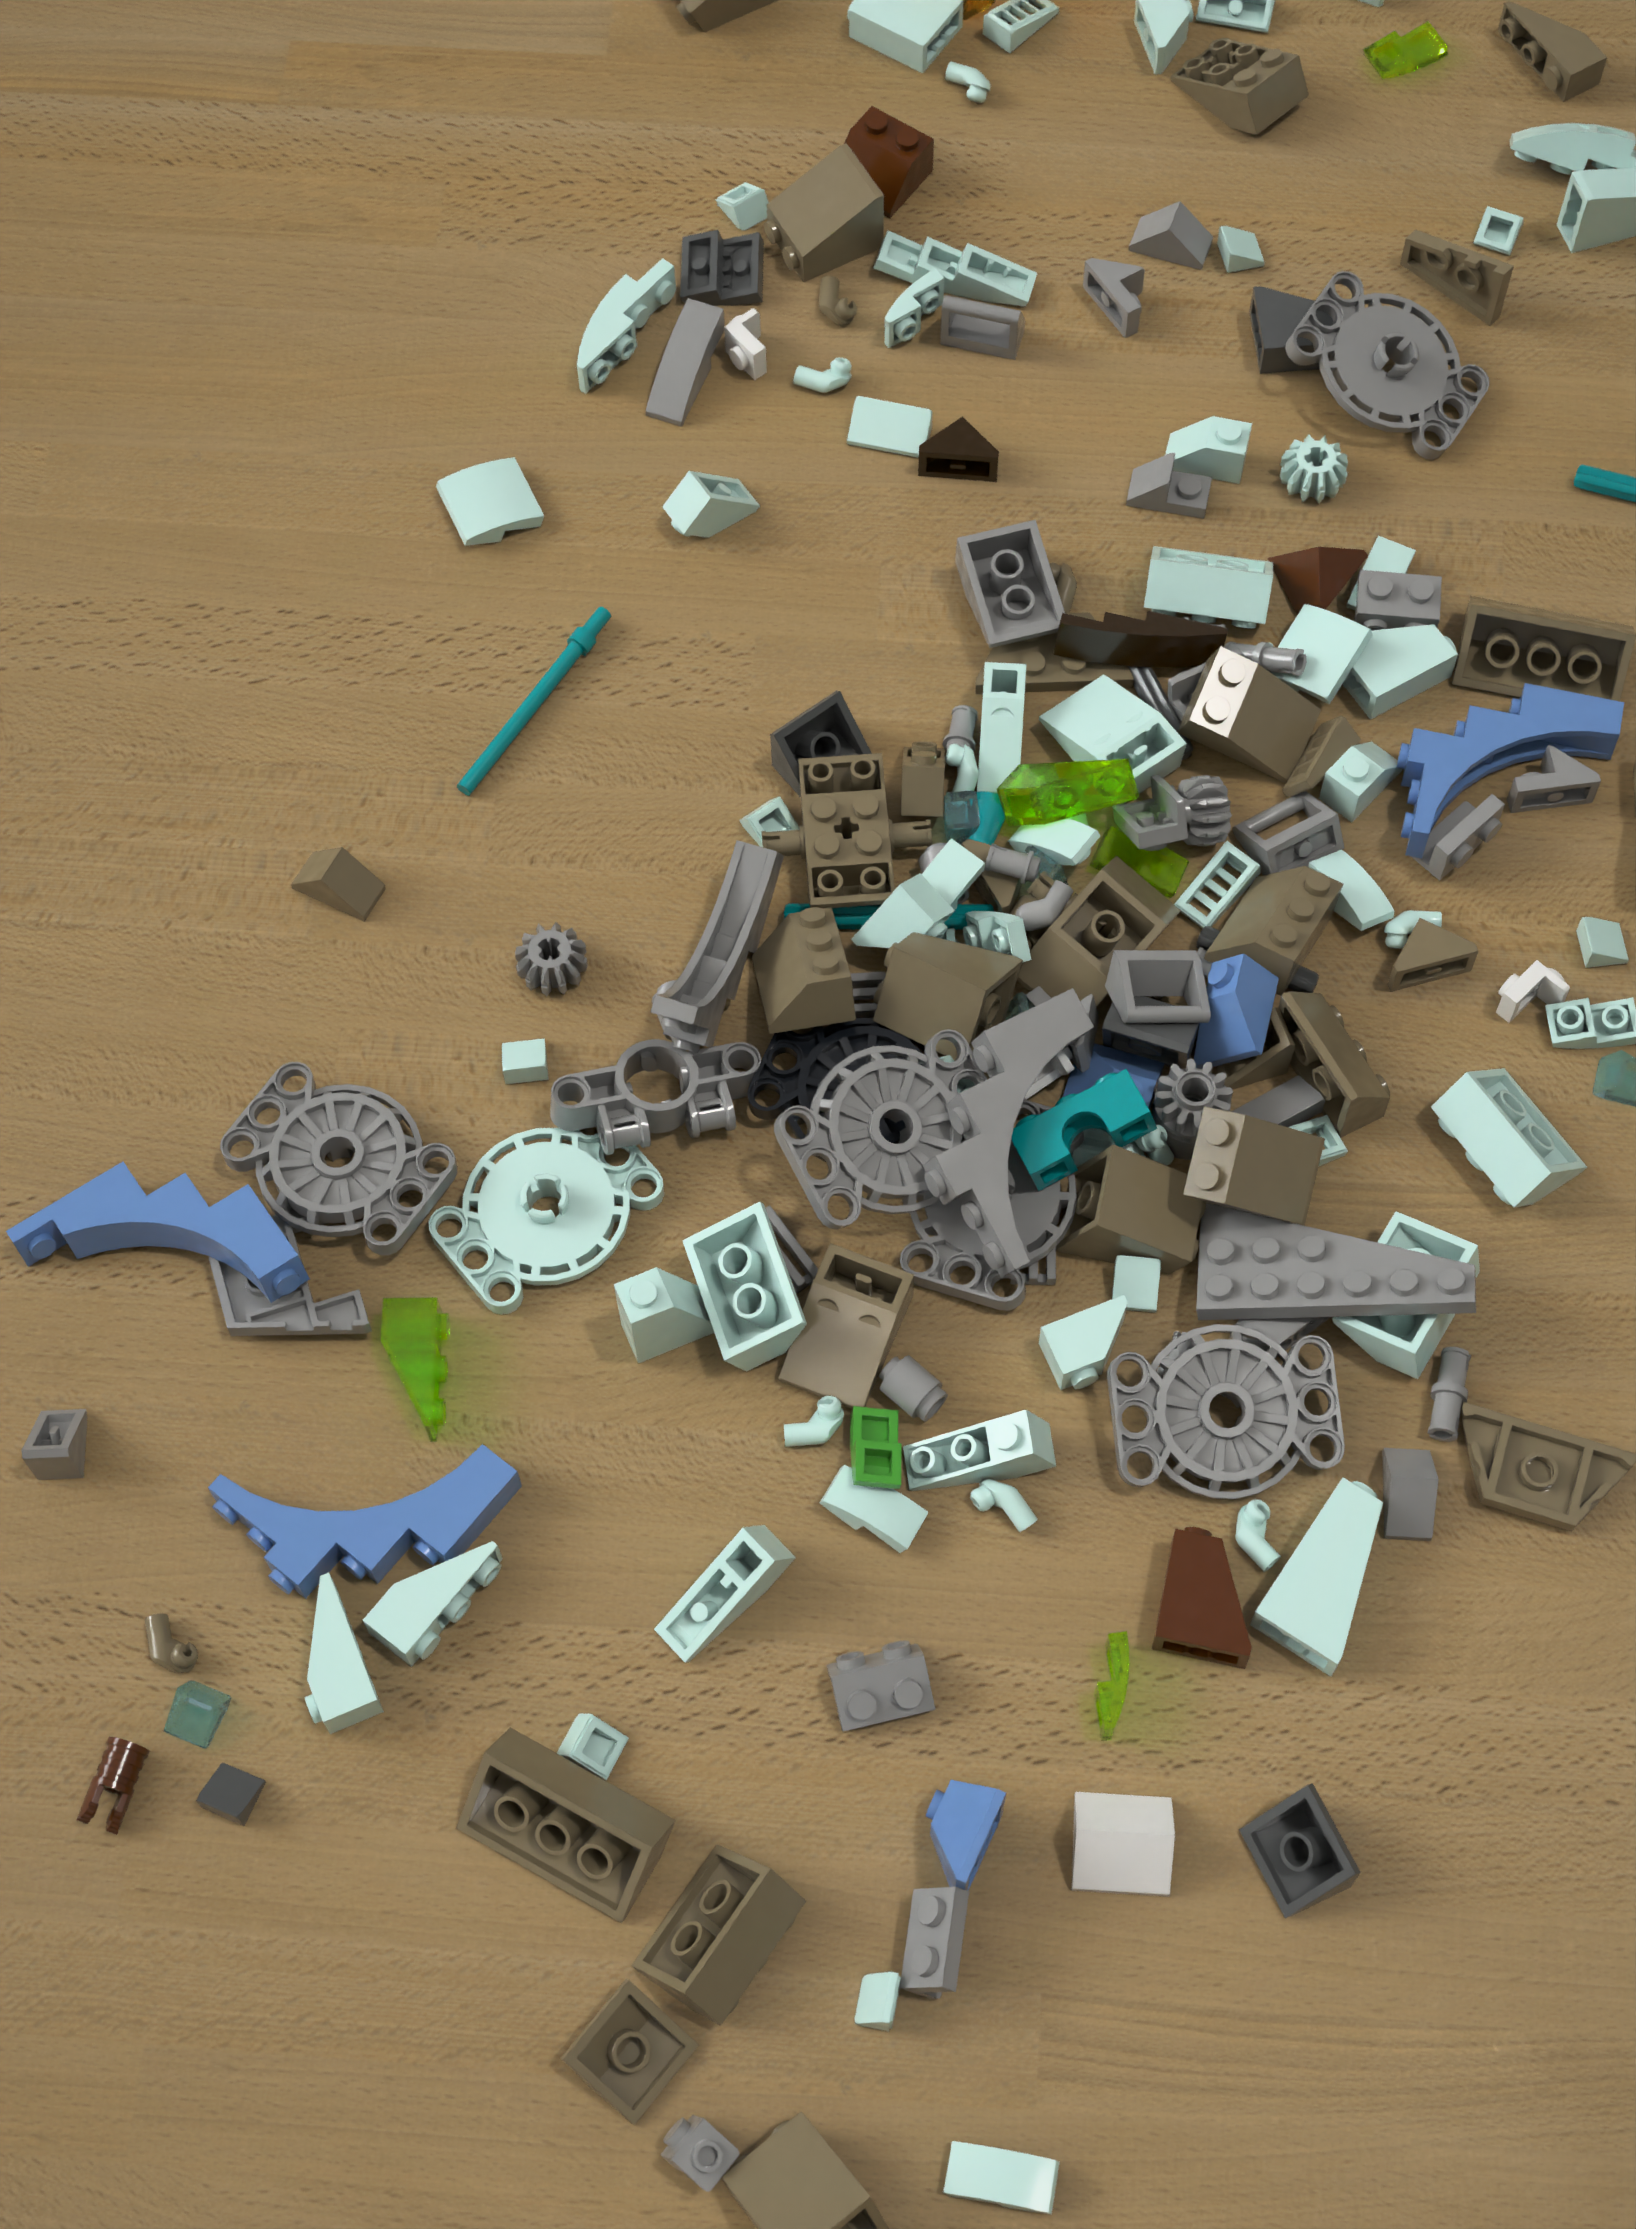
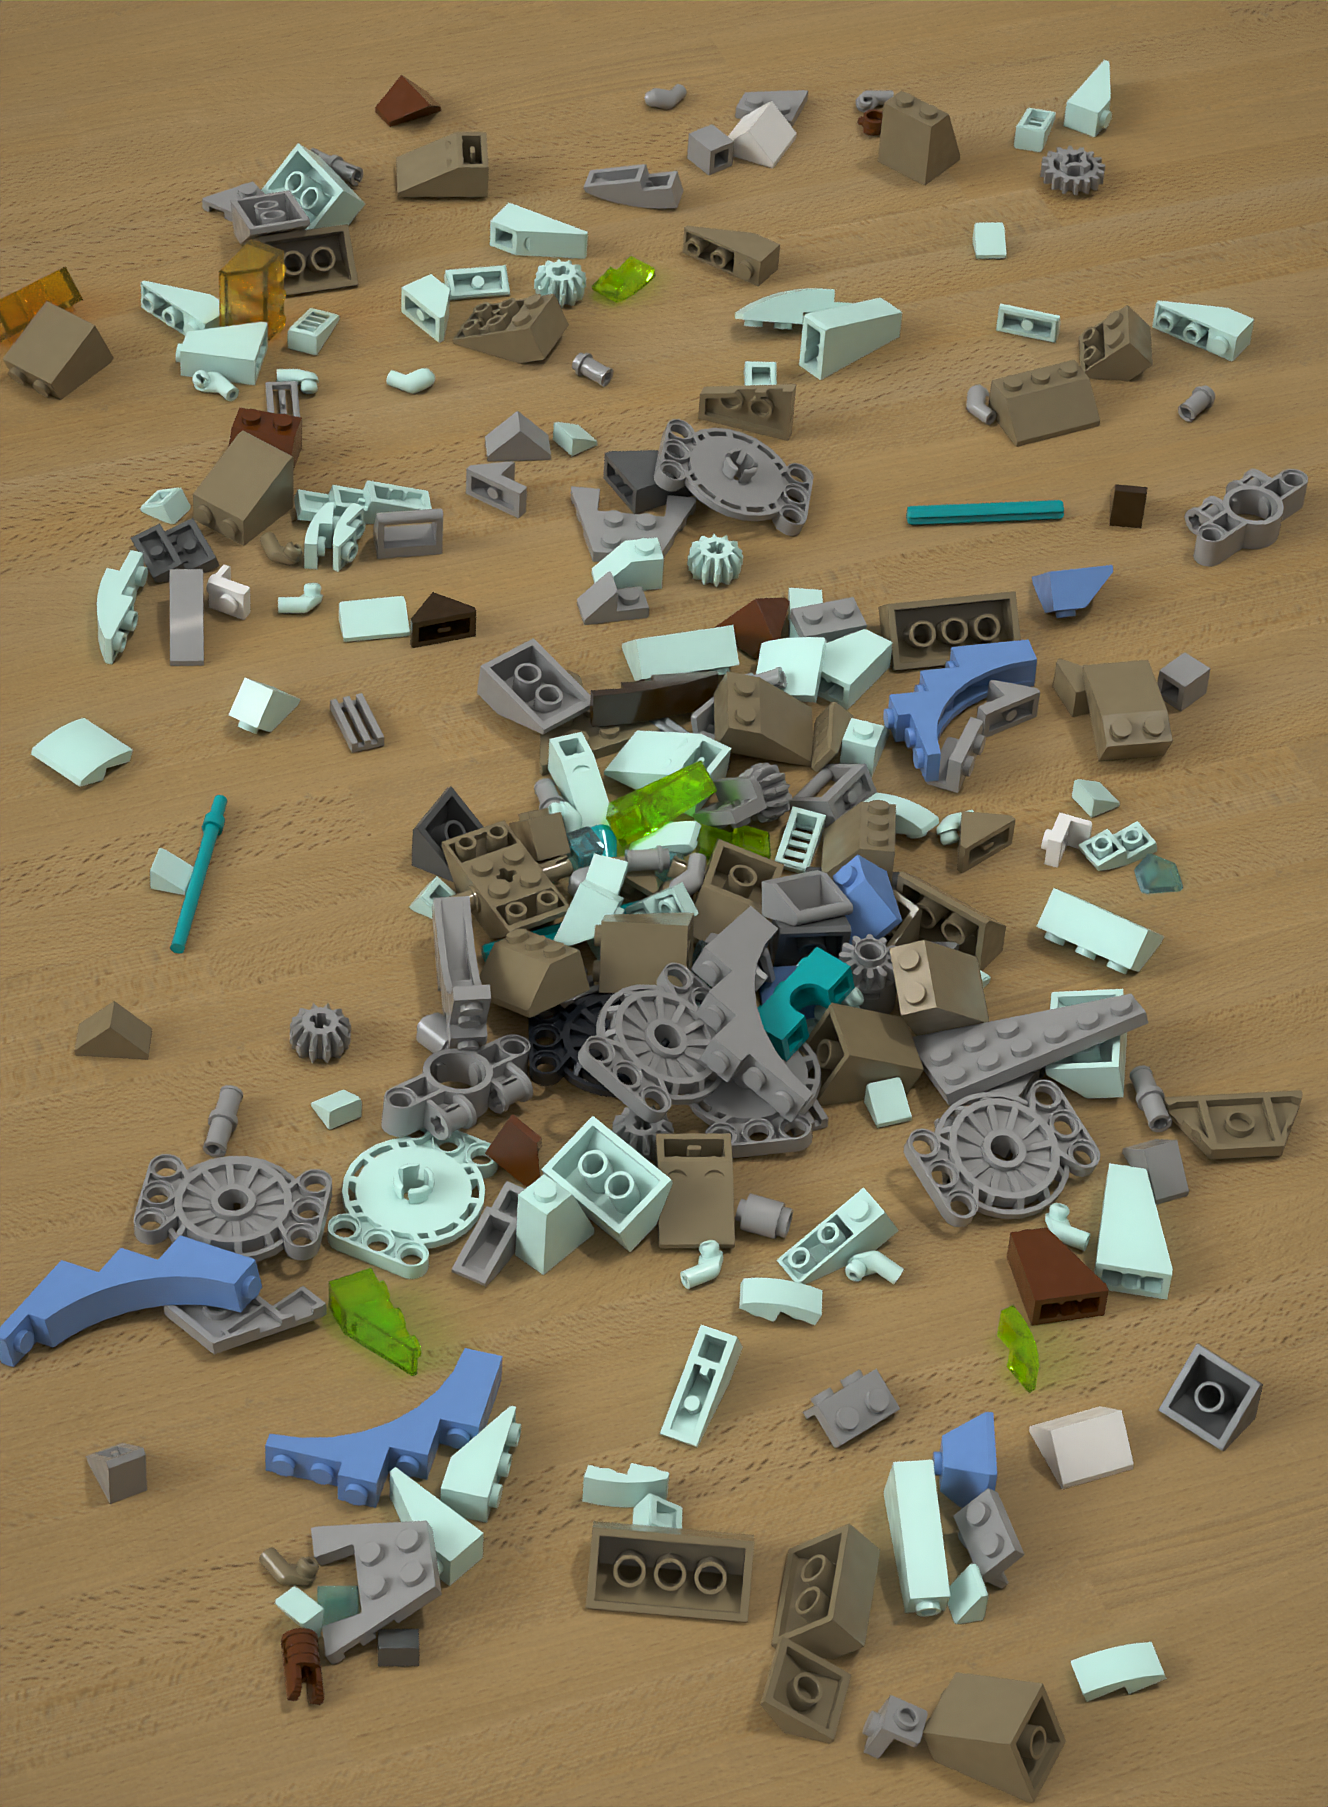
camera: 30 degrees left, 20 degrees down
(138, 1716) = (301, 1609): none -> light aqua slope
(256, 1713) = (393, 1572): none -> light grey wing
(393, 1035) = (223, 1121): none -> light grey pin
(502, 689) = (170, 873): none -> light aqua slope
(582, 1696) = (616, 1489): none -> light aqua slope
(592, 1304) = (492, 1239): none -> light grey slope
(683, 1198) = (517, 1151): none -> reddish brown slope
(805, 531) = (350, 706): none -> light grey tile
(820, 1236) = (640, 1133): none -> light grey gear
(854, 1908) = (917, 1536): none -> light aqua slope
(875, 59) = (214, 383): none -> light aqua arm
(875, 1447) = (758, 1260): bright green slope -> none
(881, 296) = (319, 535): none -> light aqua slope
(947, 85) = (281, 386): none -> light grey tile
(1082, 1343) = (871, 1150): light aqua slope -> none
(1095, 121) = (412, 382): none -> light aqua arm
(1236, 395) = (609, 529): none -> light grey wing
(1301, 157) = (587, 366): none -> light grey pin
(1327, 35) = (561, 279): none -> light aqua gear

